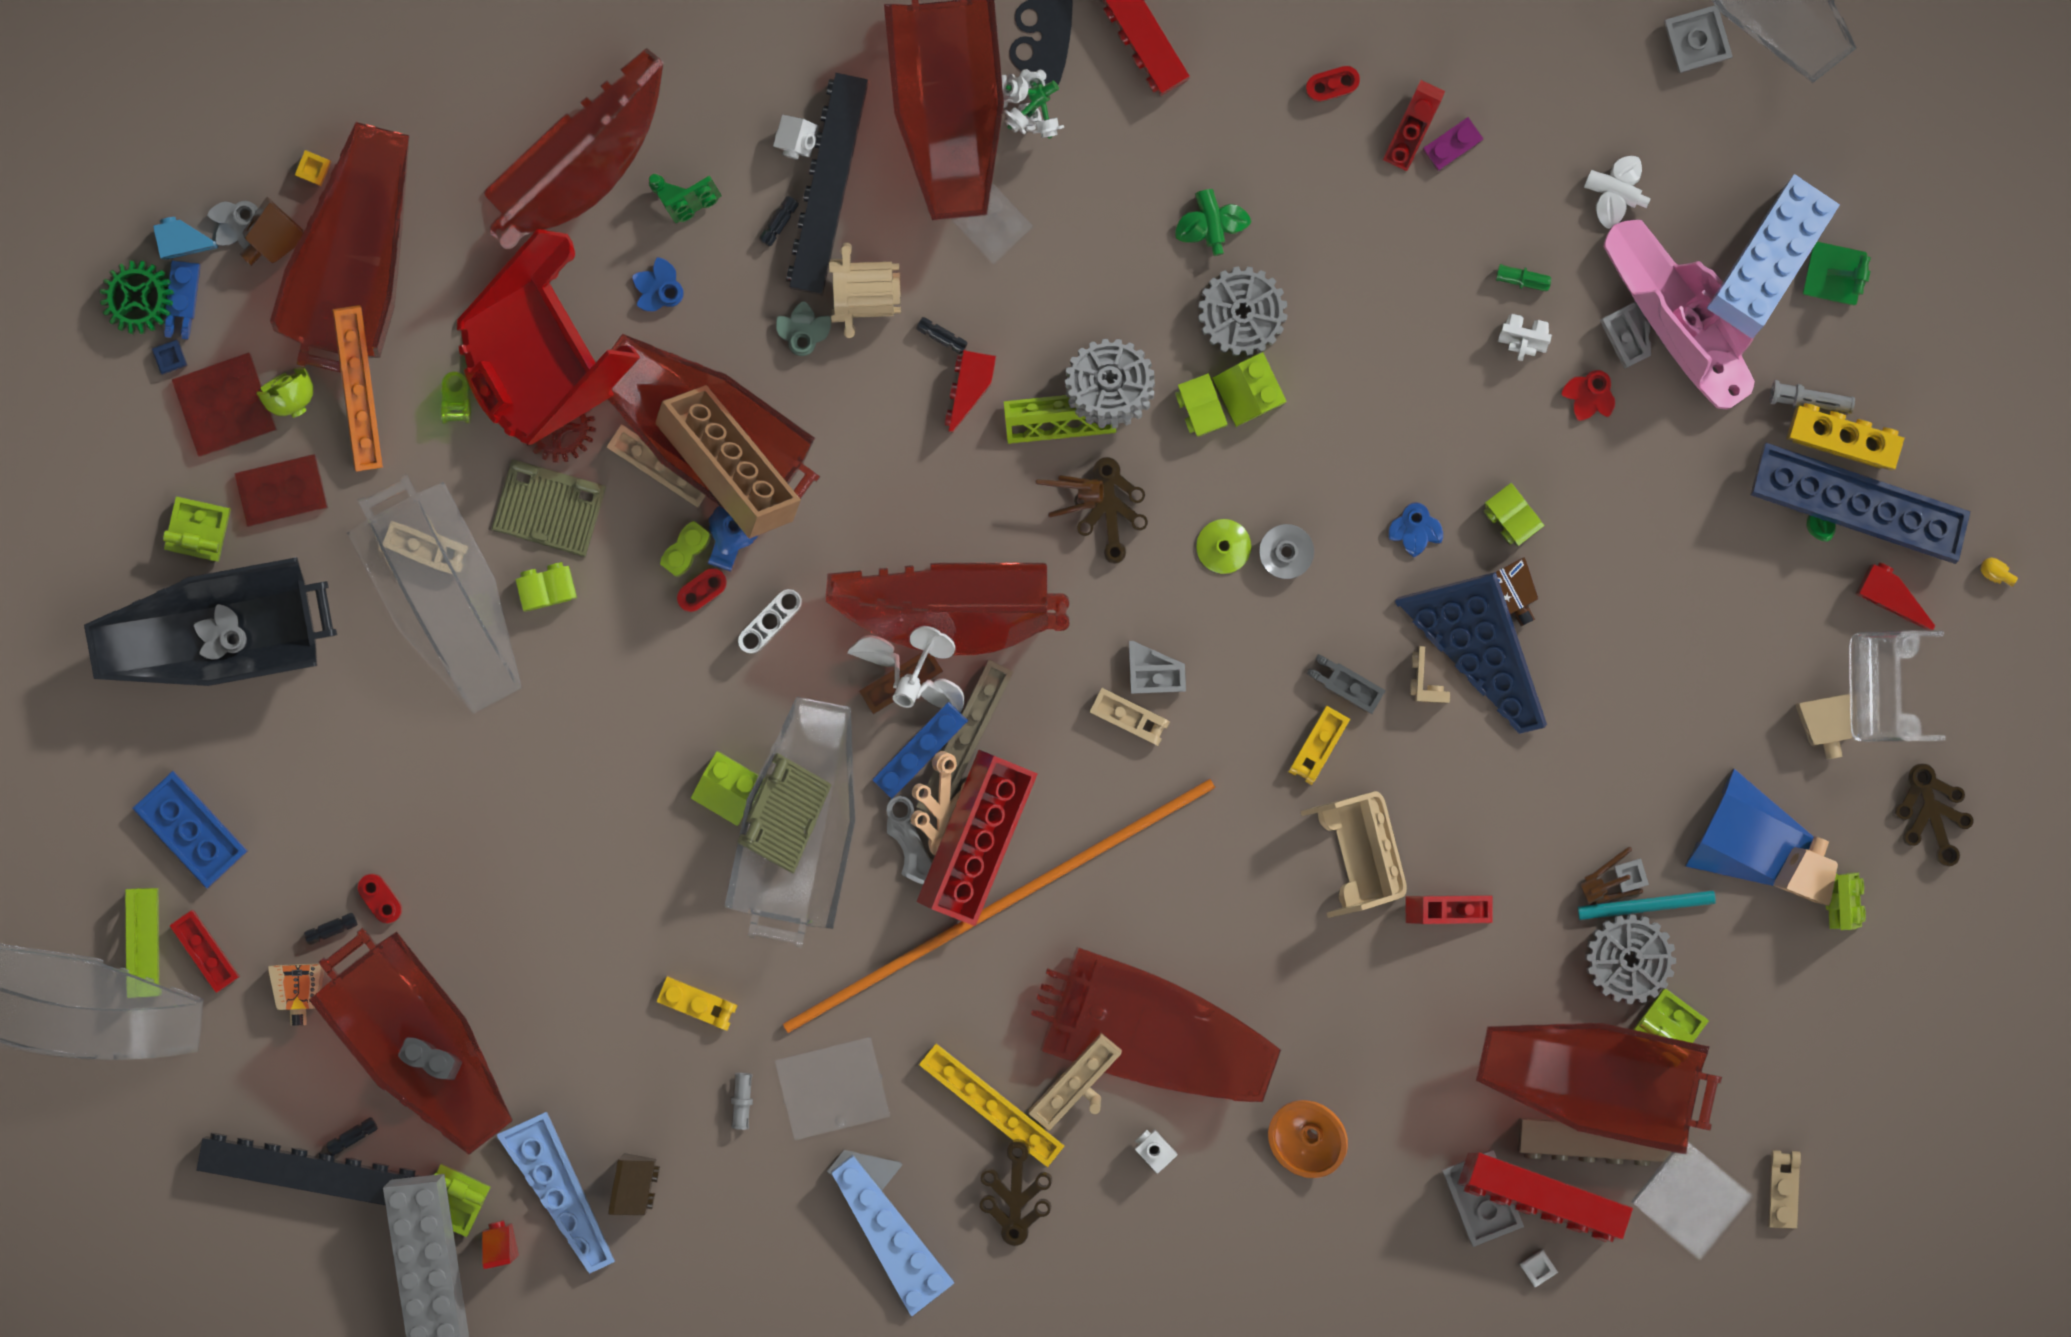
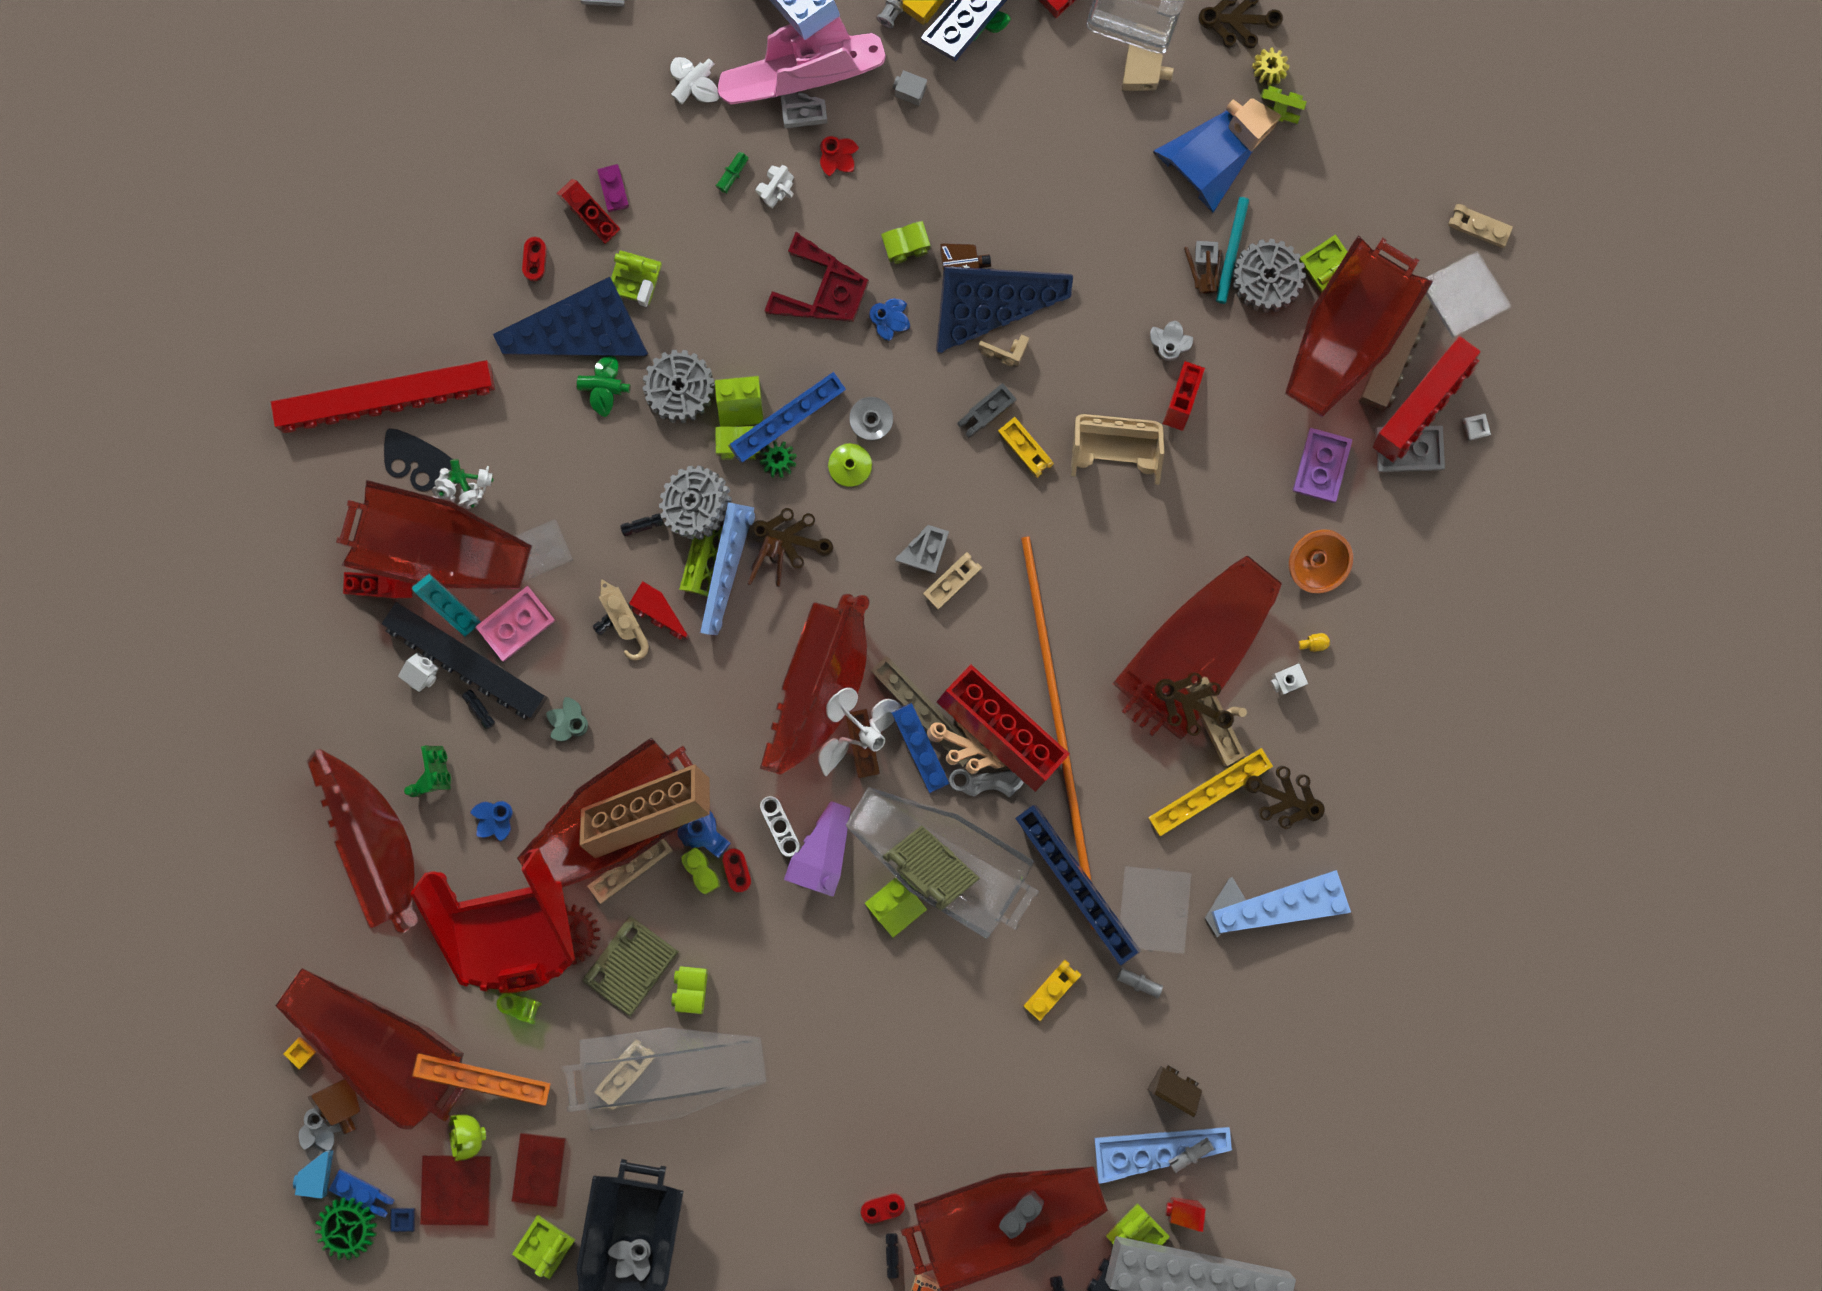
camera: 70 degrees left, 5 degrees down
(566, 1228) = (1191, 1155): none -> light grey pin
(753, 682) = (821, 857): none -> medium lavender wedge
(827, 989) = (1078, 884): none -> dark blue brick
(863, 289) = (554, 662): tan container -> none
(875, 45) = (375, 585): none -> red slope
(883, 141) = (446, 604): none -> teal plate
(893, 226) = (515, 623): none -> bright pink plate
(944, 349) = (622, 618): none -> tan plate
(1063, 329) = (641, 524): none -> black axle
(1075, 443) = (730, 548): none -> light blue wing
(1084, 1043) = (1190, 702): none -> dark brown plant
(1205, 453) = (774, 453): none -> green gear
(1211, 1166) = (1315, 642): none -> yellow cylinder
(1250, 453) = (786, 417): none -> blue plate
(1274, 170) = (581, 324): none -> dark blue wing
(1337, 231) = (645, 293): none -> white tile
(1354, 210) = (631, 271): none -> lime plate
(1423, 458) = (837, 295): none -> dark red wing
(1425, 1101) = (1322, 465): none -> medium lavender plate
(1514, 870) = (1170, 337): none -> light grey plate
(1703, 451) = (910, 87): none -> light grey brick
(1883, 862) = (1262, 63): none -> light yellow gear

